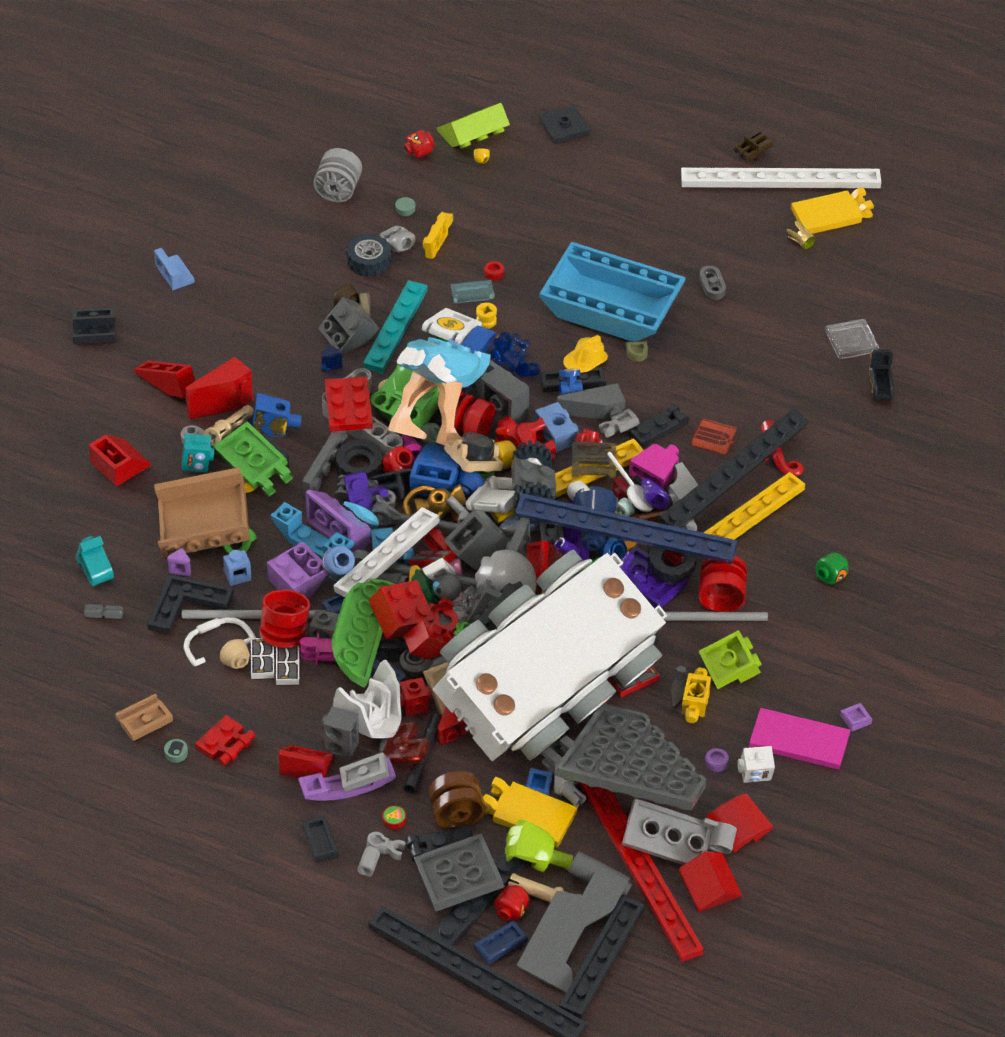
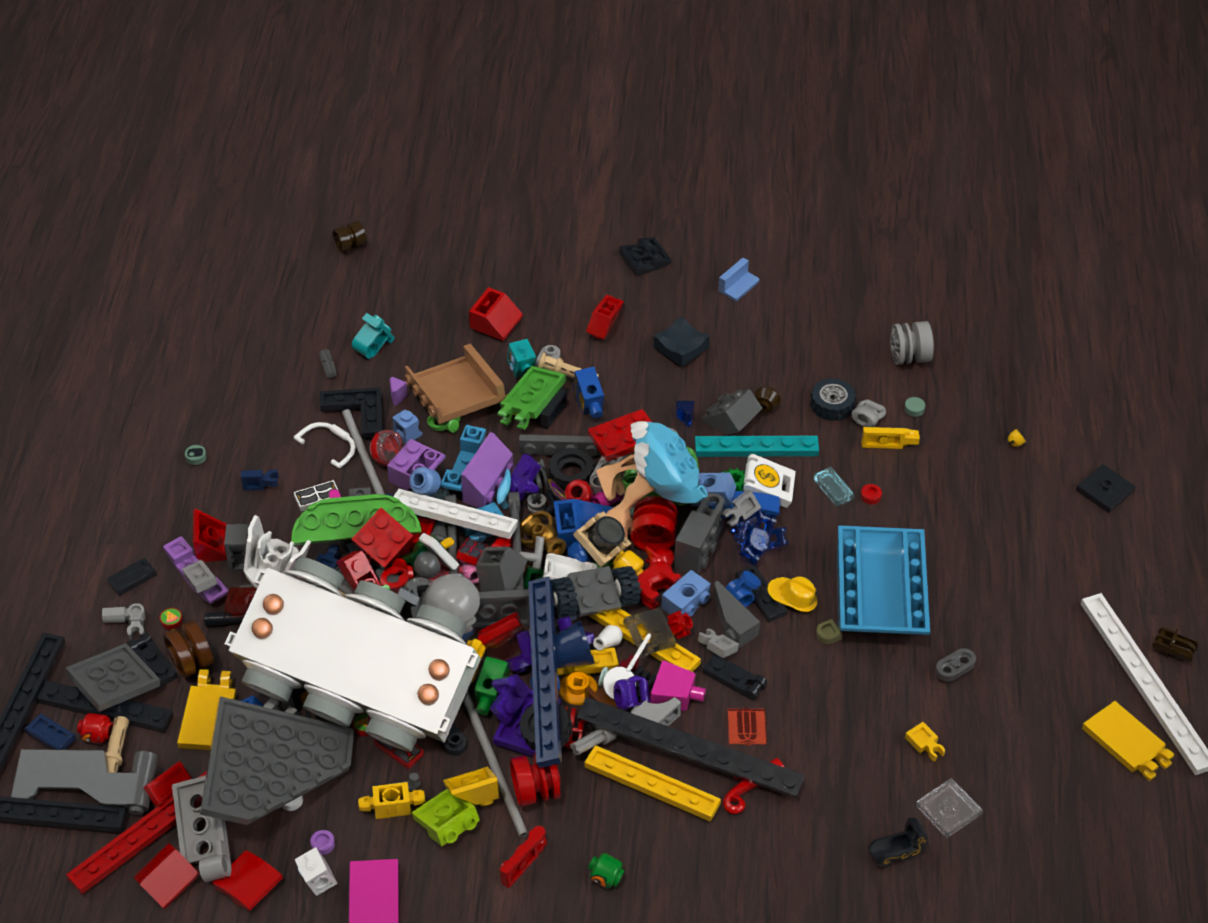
camera: 70 degrees right, 0 degrees up
(144, 717) = (221, 423): medium nougat plate -> none
(220, 390) = (600, 349): red slope -> none
(221, 736) = (218, 477): red plate -> none
(235, 654) = (309, 456): tan cone -> none
(236, 333) = (681, 342): none -> black brick
(244, 705) = (257, 480): none -> dark blue plate
(255, 589) = (385, 446): none -> clear hair
(261, 659) = (317, 476): tile -> none
(284, 618) = (351, 468): red wheel -> none
(365, 302) = (769, 414): dark tan tile -> none
(419, 144) = (998, 389): red head -> none
(475, 126) = (1050, 421): lime slope -> none
(485, 344) = (744, 507): none -> light grey plate
(486, 314) = (804, 503): yellow wheel -> none
(534, 845) = (153, 720): lime piece -> none
(609, 855) = (161, 787): none -> red tile
(713, 623) = (475, 786): none -> yellow slope
(782, 329) = (923, 739): none -> yellow plate
(794, 618) = (523, 857): none -> red hinge
(803, 237) = (1068, 726): pearl gold piece -> none

